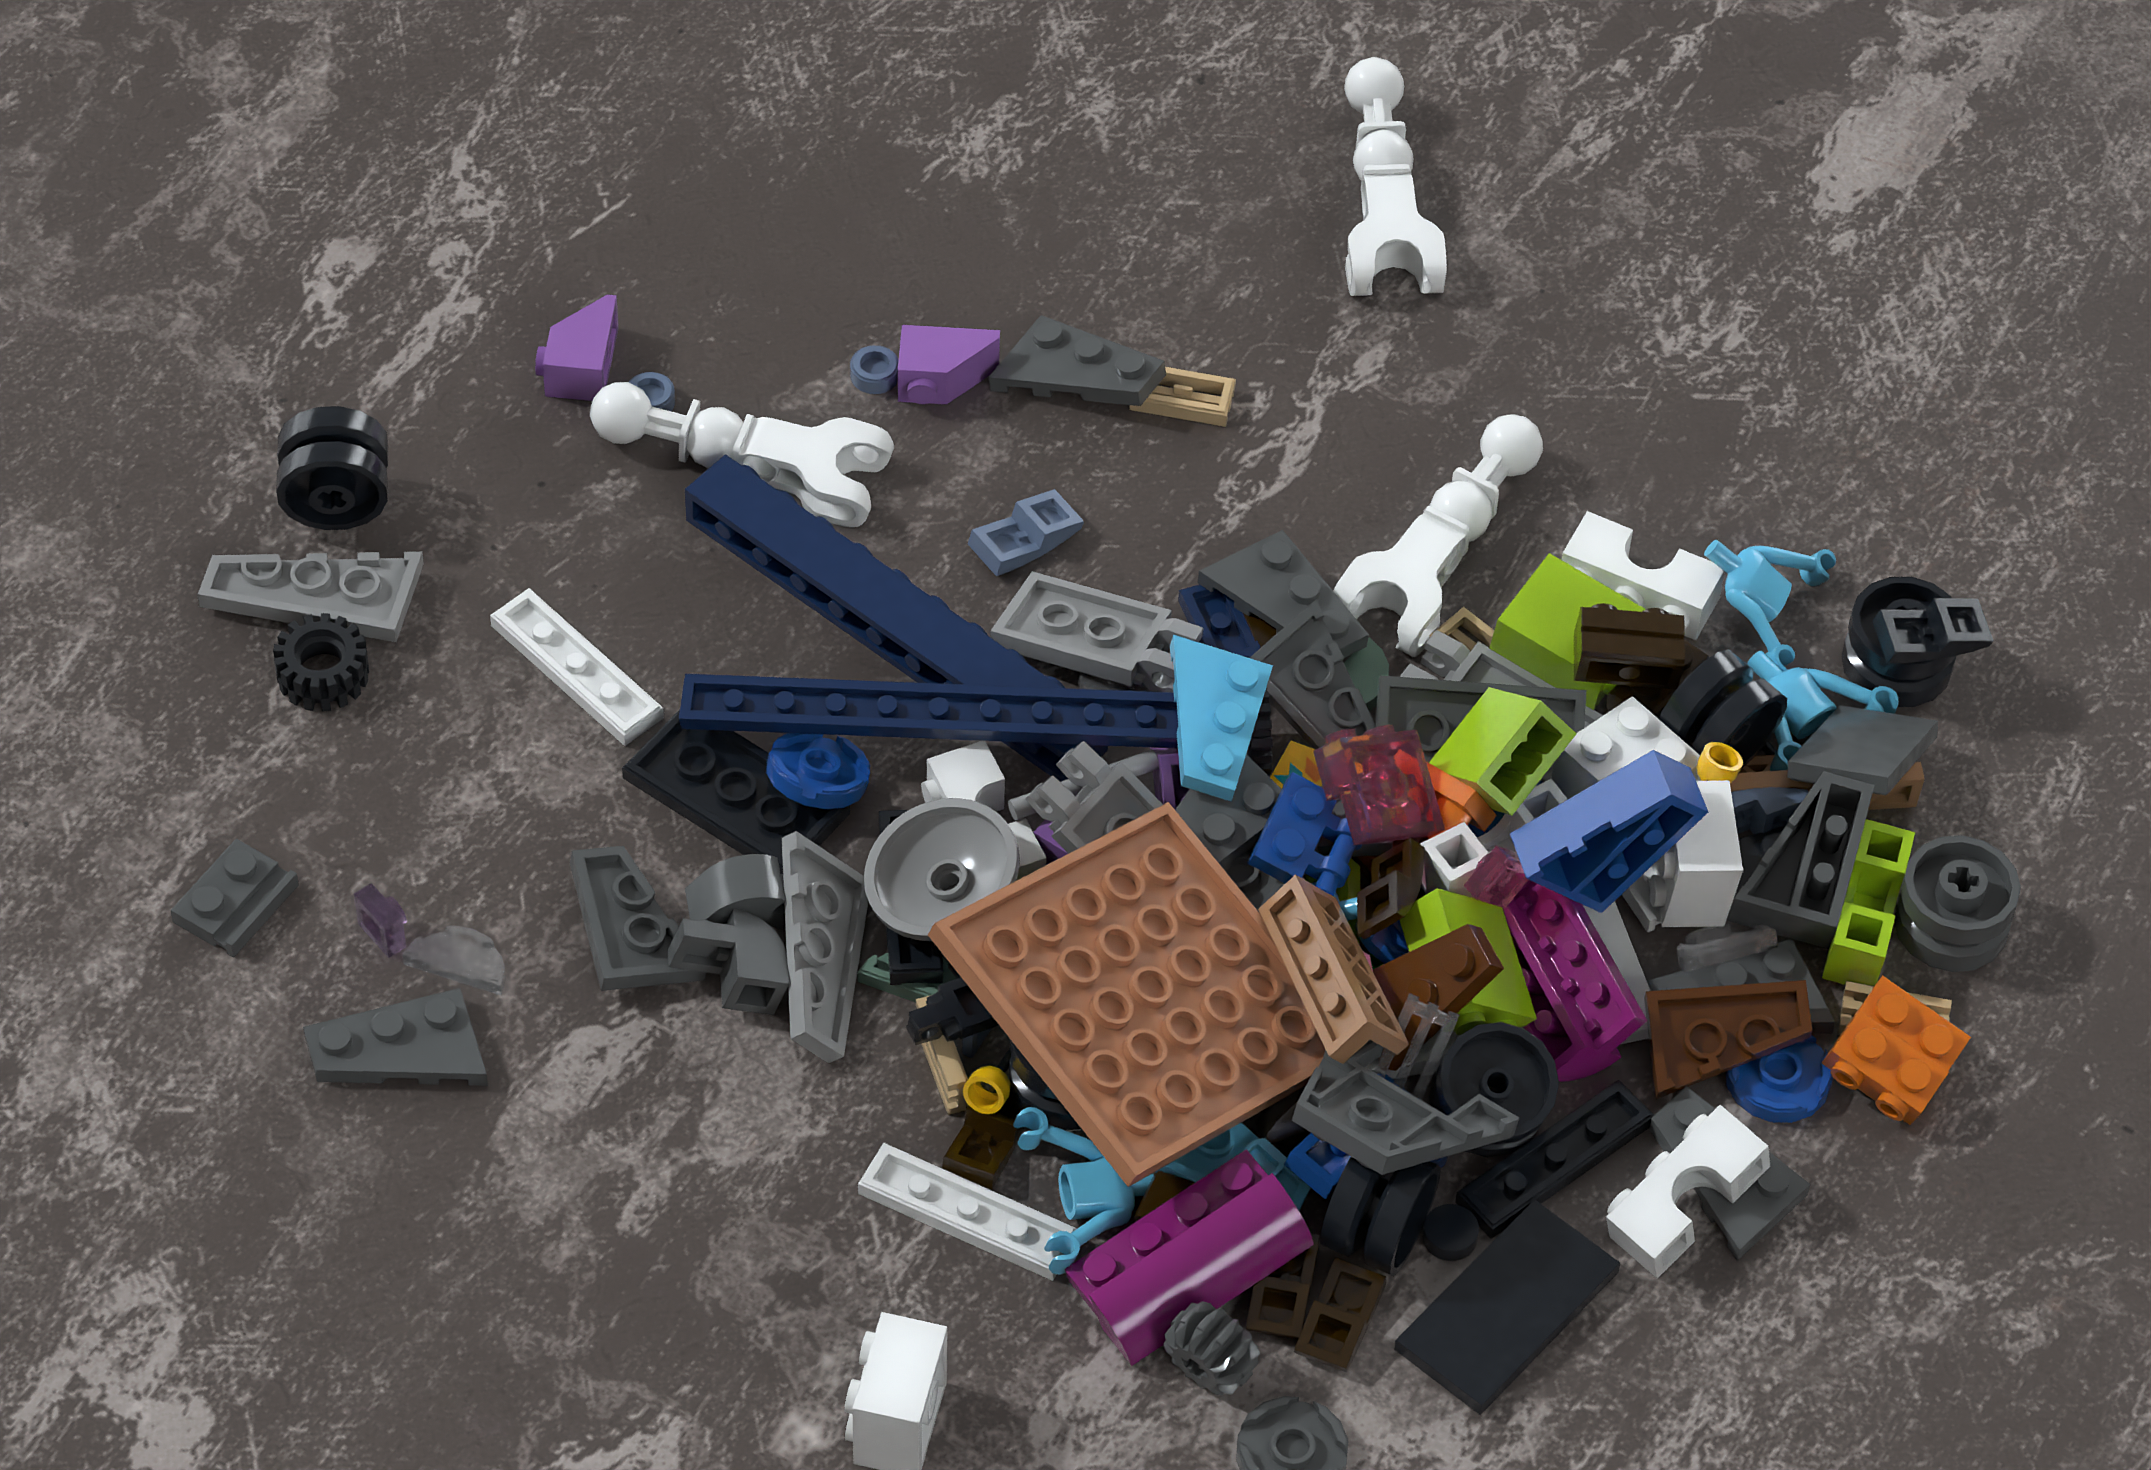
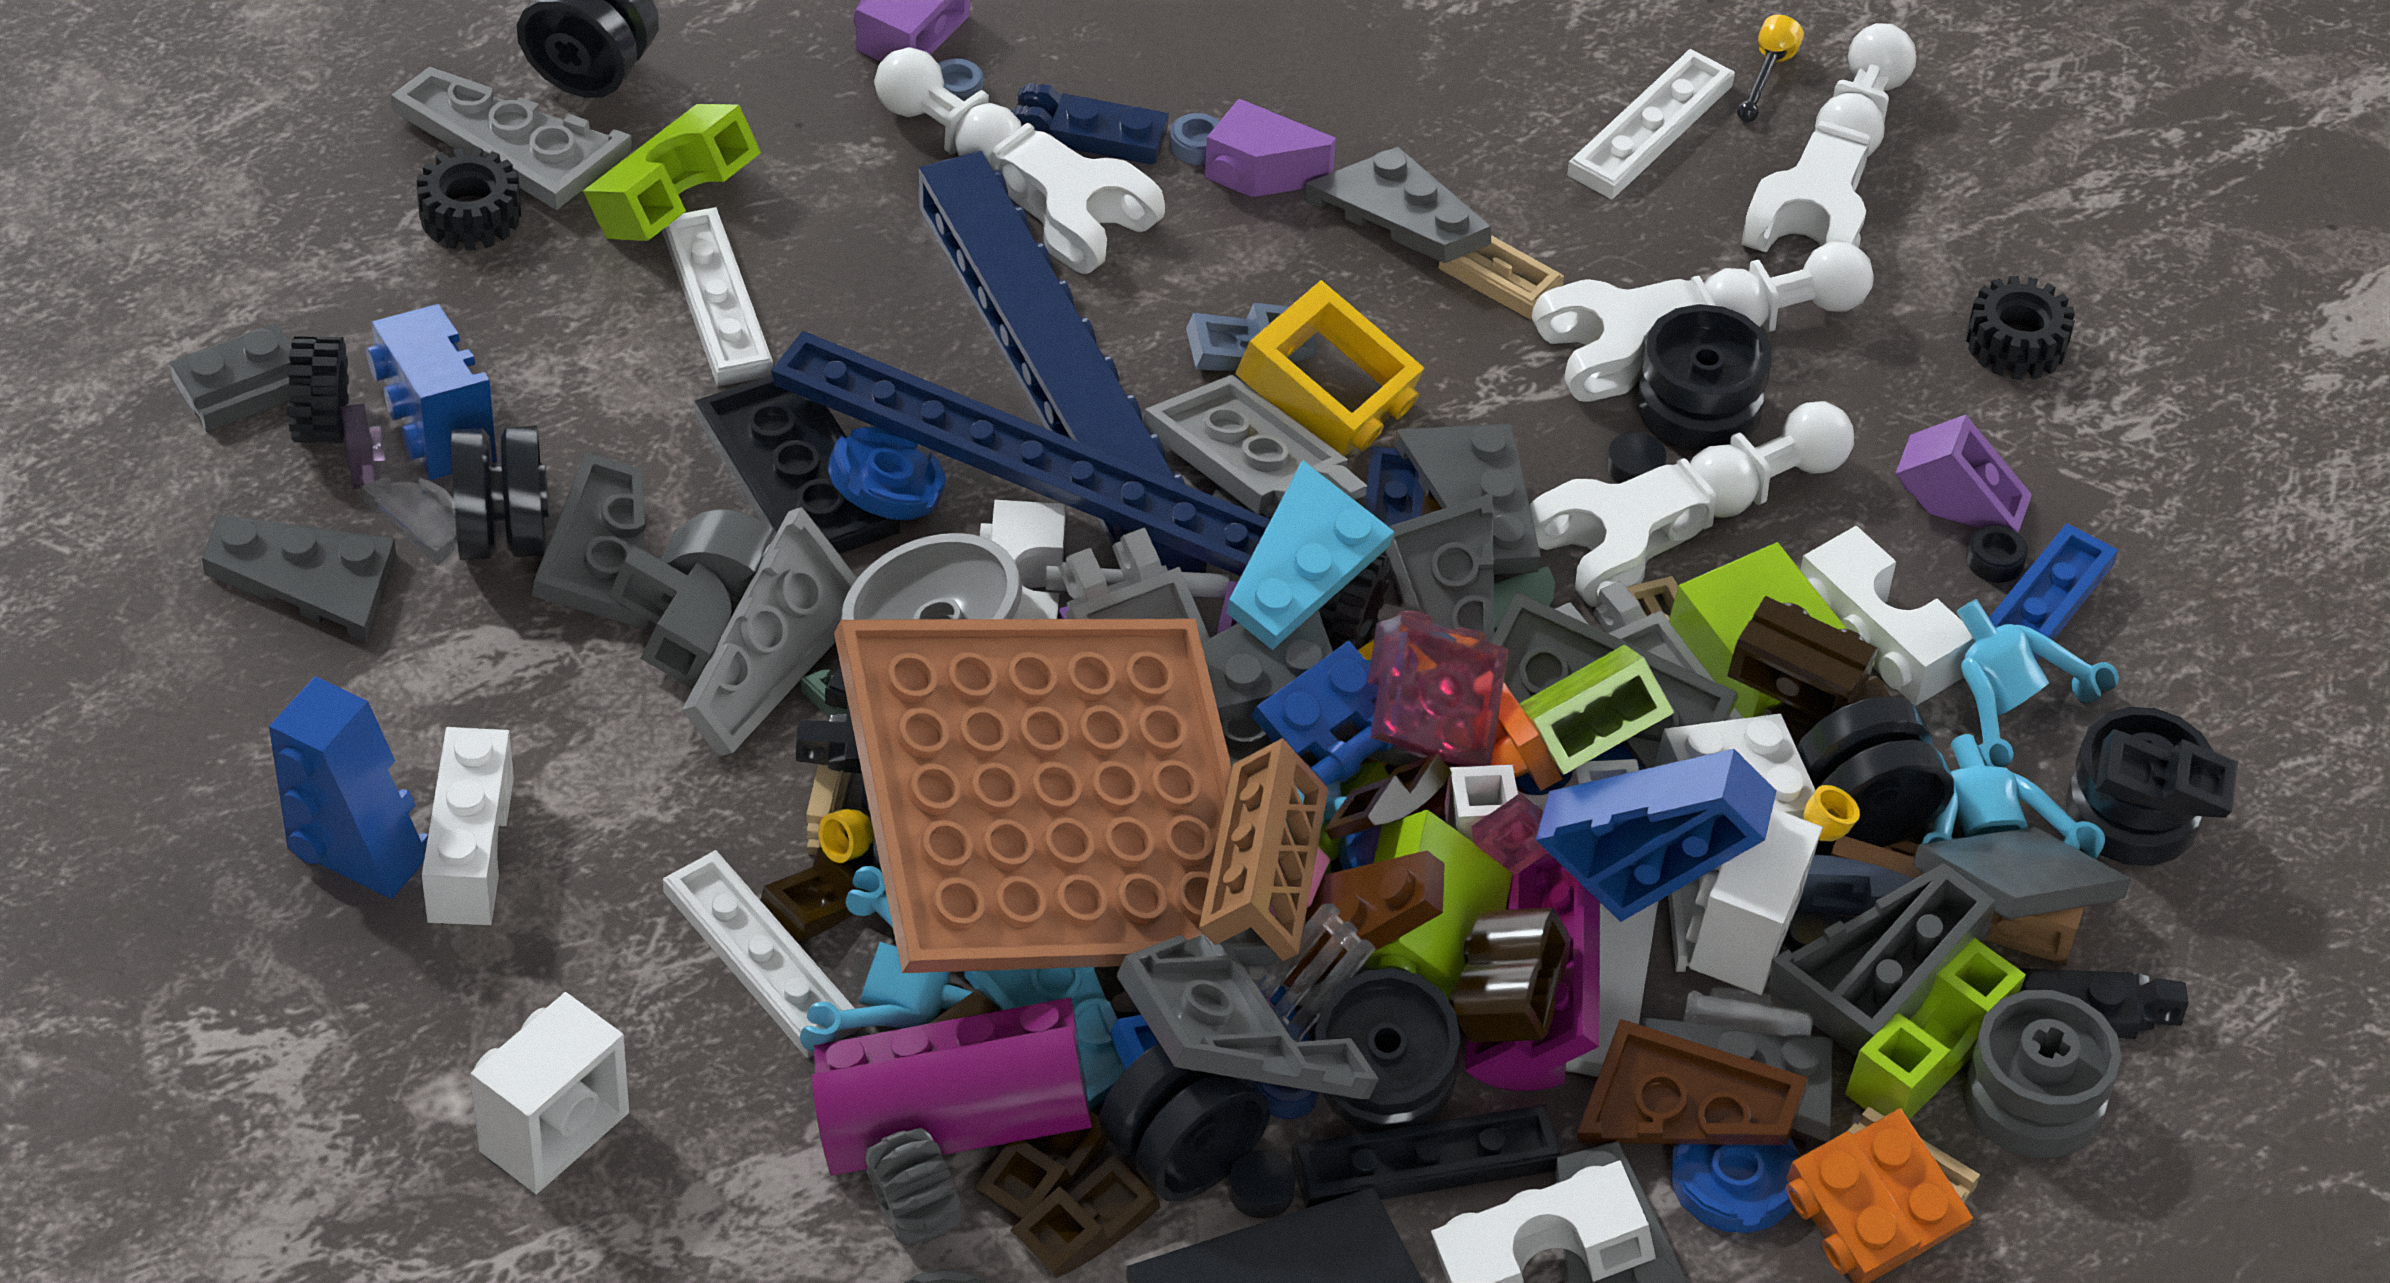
camera: 25 degrees right, 5 degrees down
(323, 886) = (317, 389): none -> black tyre
(411, 845) = (429, 385): none -> blue wedge
(465, 601) = (643, 189): none -> lime arch
(534, 915) = (499, 492): none -> black wheel
(586, 1224) = (339, 791): none -> blue wedge
(695, 1219) = (463, 832): none -> white arch
(784, 389) = (1093, 124): none -> dark blue hinge
(1103, 570) = (1288, 388): none -> yellow window
(1221, 214) = (1650, 124): none -> white tile
(1282, 102) = (1777, 42): none -> hinge
(1351, 378) = (1617, 320): none -> white piece
(1380, 518) = (1634, 455): none -> black tile
(1400, 428) = (1703, 376): none -> black wheel
(1557, 991) = (1511, 975): none -> dark brown brick
(1608, 266) = (2024, 306): none -> black tyre
(1634, 435) = (1962, 476): none -> medium lavender slope
(1688, 488) = (1996, 553): none -> black tile
(1749, 497) = (2057, 583): none -> blue plate
(1968, 816) = (2124, 999): none -> black hinge

